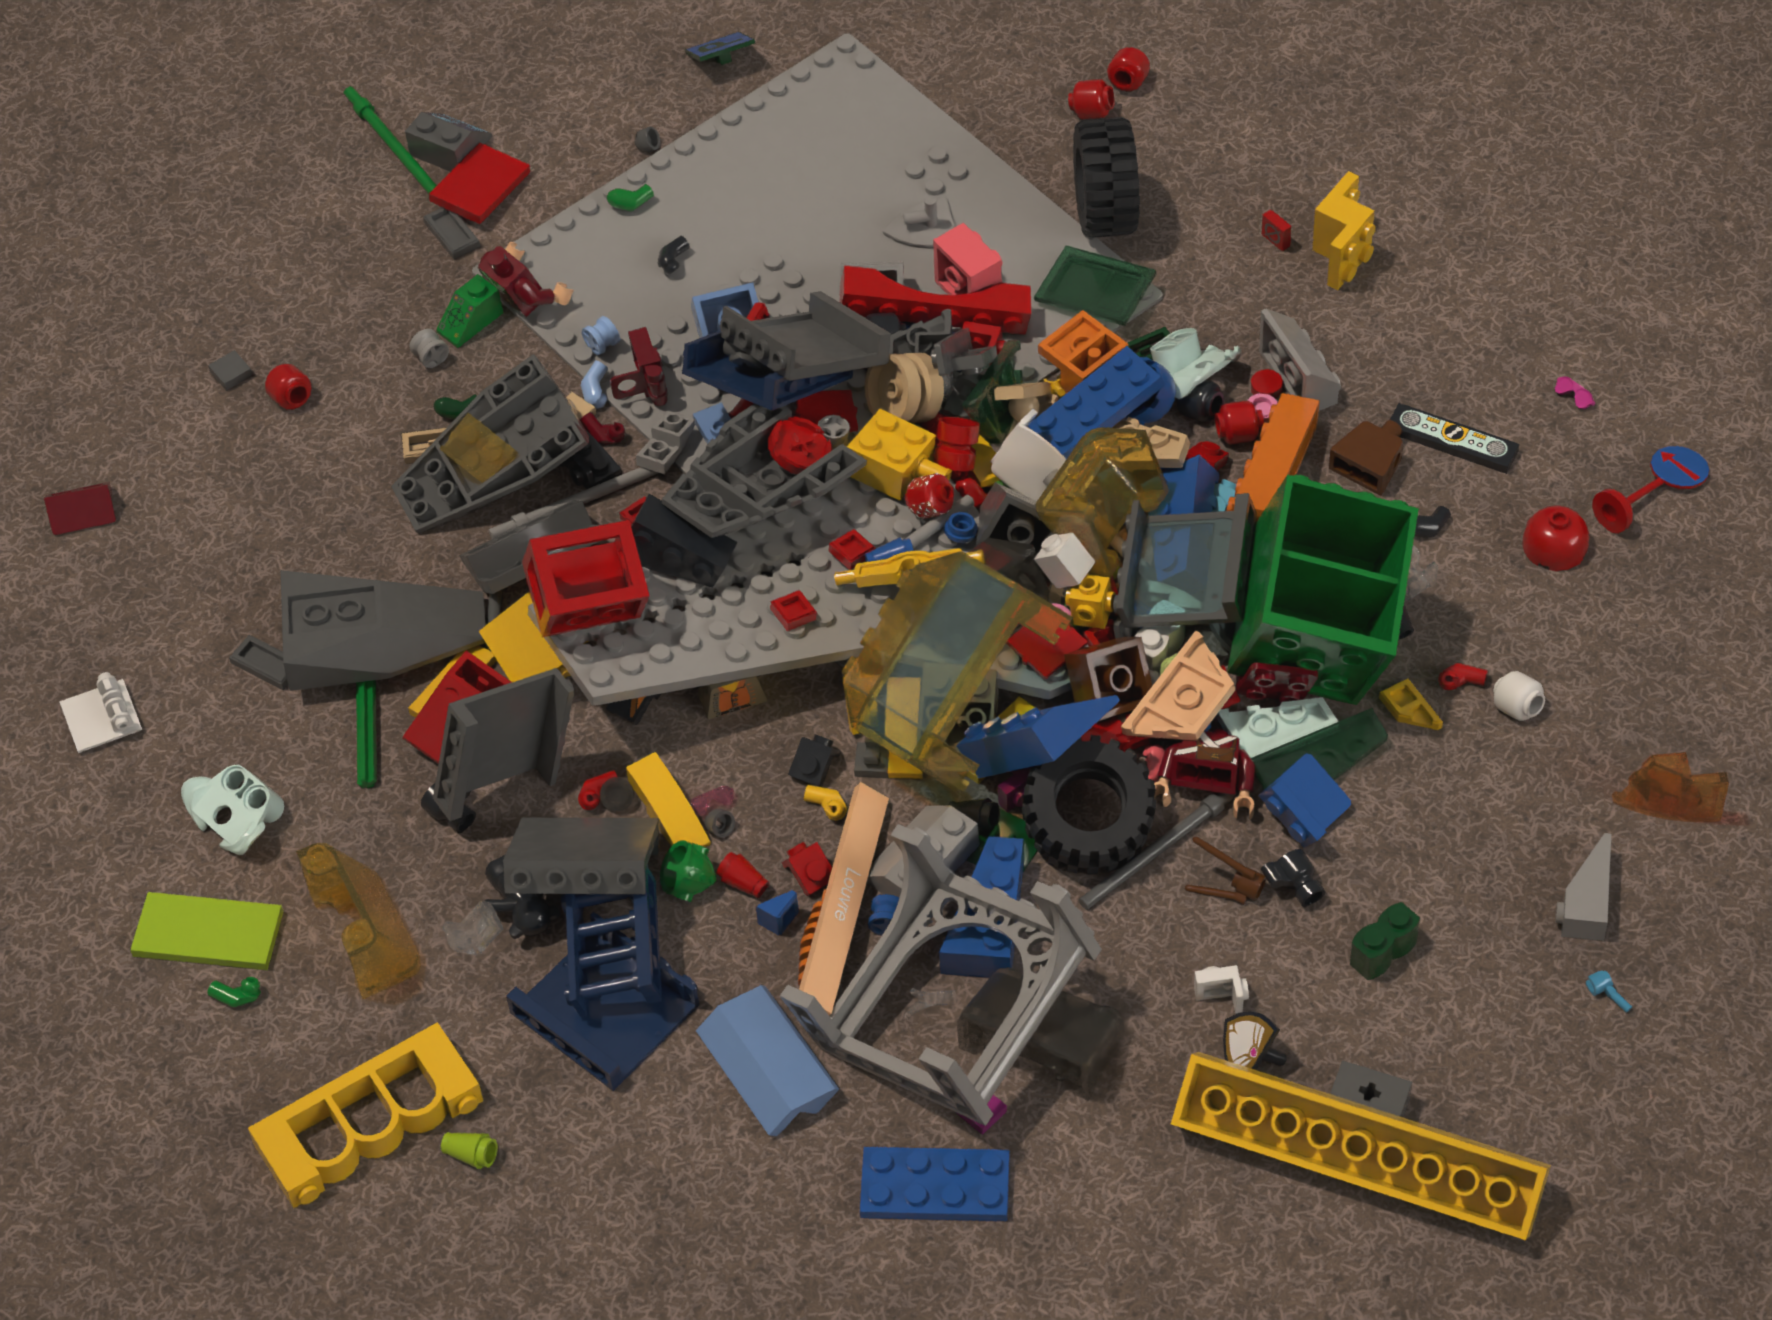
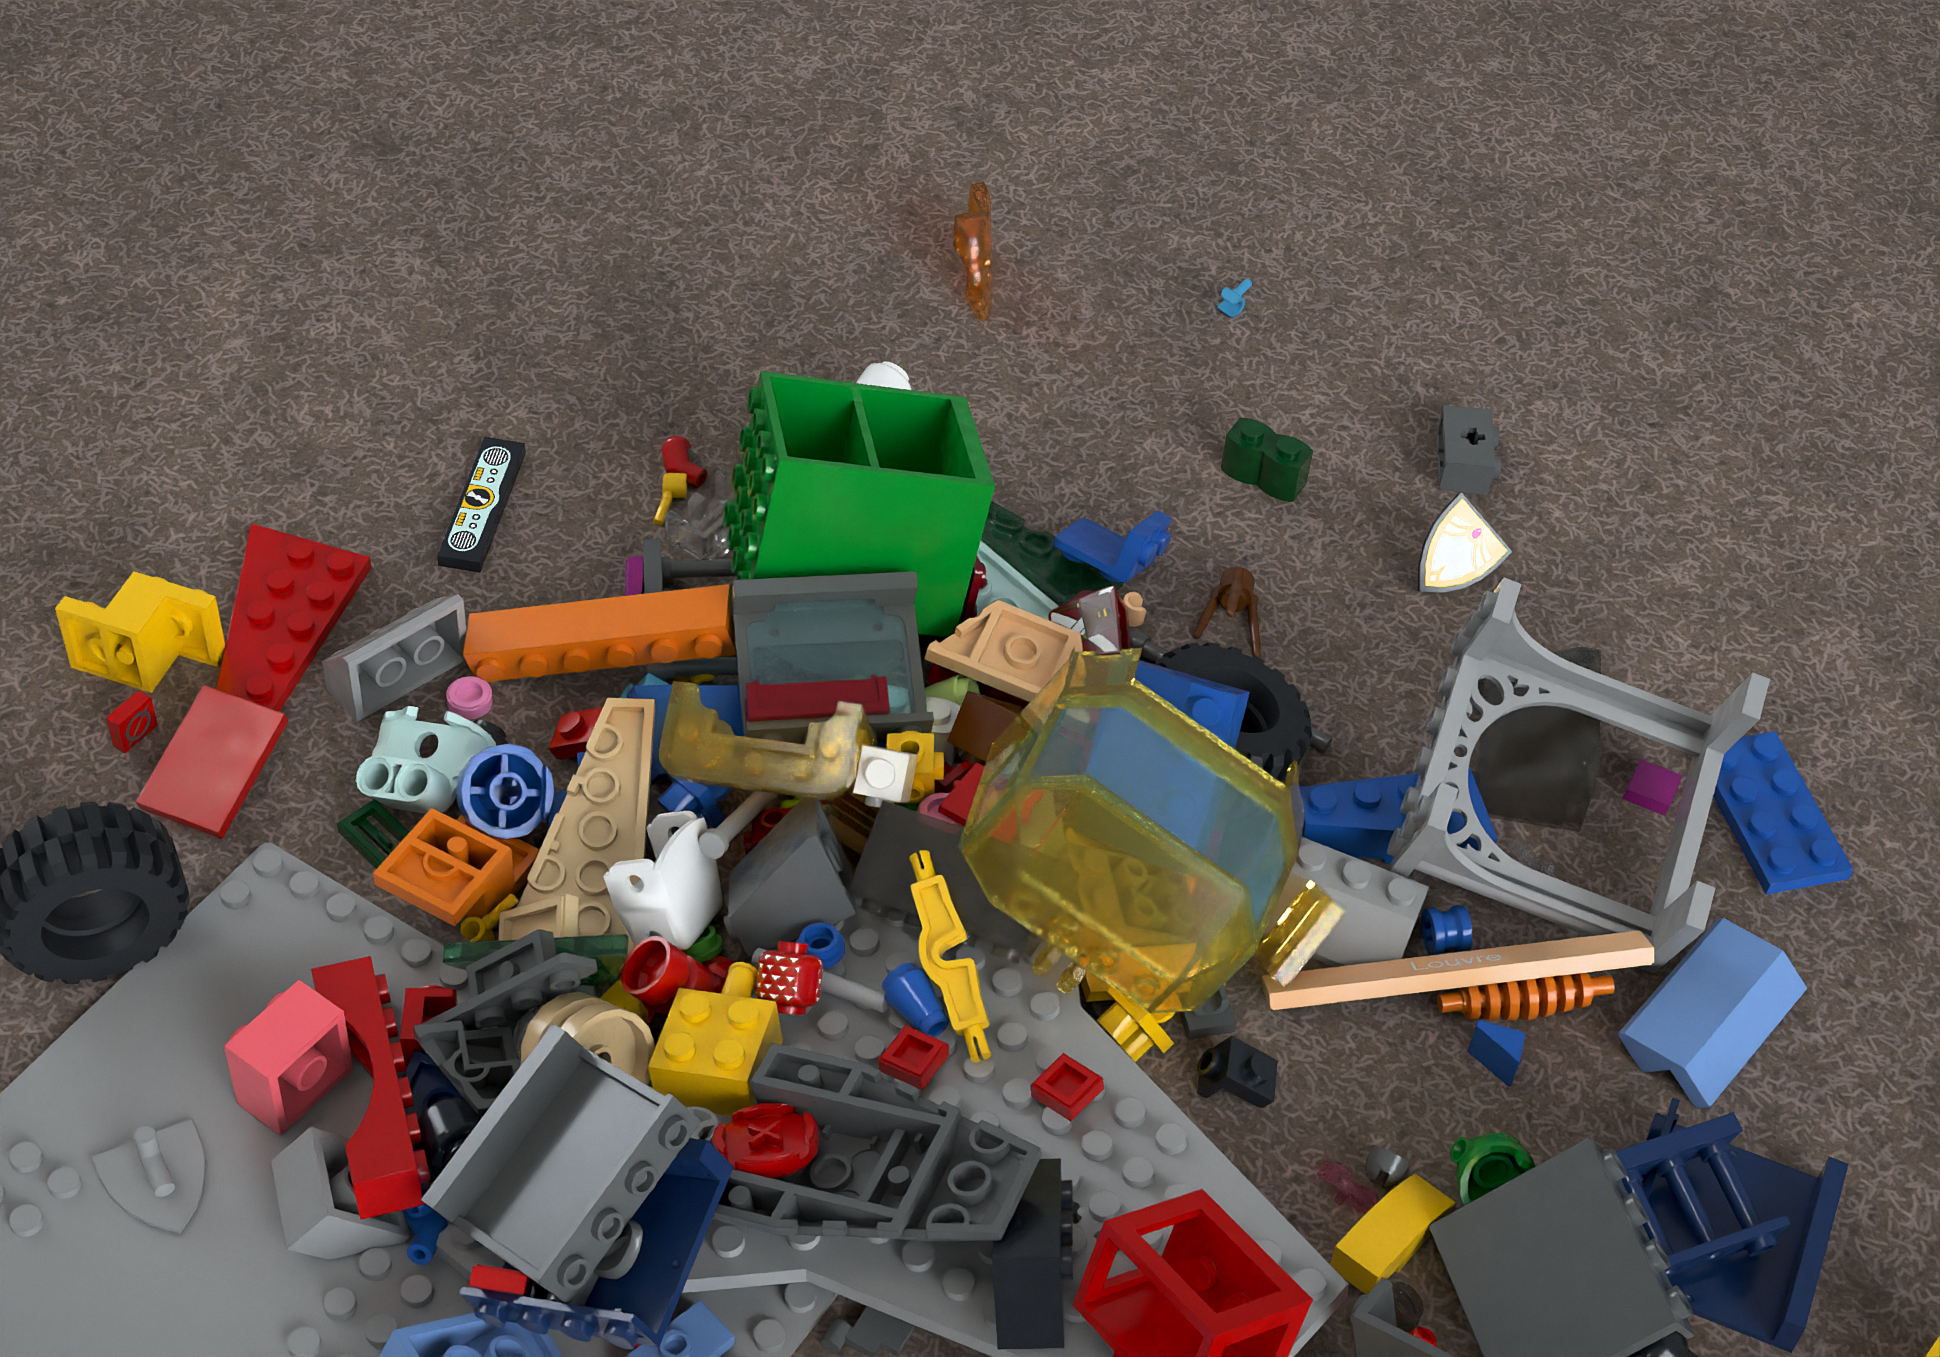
camera: 115 degrees left, 5 degrees down
(742, 875) = (1458, 1111): red cone -> none
(808, 866) = (1407, 1039): red bracket -> none
(829, 799) = (1295, 1041): yellow arm -> none
(898, 807) = (1298, 933): none -> clear yellow plate
(1096, 284) = (276, 910): clear green piece -> none
(1098, 401) = (550, 823): blue plate -> none
(1148, 546) = (814, 698): none -> dark red container
(1221, 982) = (1387, 591): white bracket -> none
(1229, 266) = (212, 761): none -> tile
(1238, 422) = (514, 703): red head -> none
(1267, 382) = (428, 695): red tile -> none
(1296, 873) = (1211, 548): black piece -> none
(1361, 1145) = (1544, 441): yellow brick -> none
(1368, 320) = (284, 612): none -> red wing
(1368, 455) = (538, 564): reddish brown torso -> none
(1431, 525) = (641, 510): black arm -> none
(1443, 549) = (673, 486): none -> yellow hand
(1470, 557) = (677, 461): none -> red arm
(1556, 538) = (628, 389): red cylinder -> none
(1583, 397) = (374, 409): dark pink piece -> none
(1587, 896) = (1126, 312): light grey slope -> none
(1670, 465) = (495, 302): piece -> none

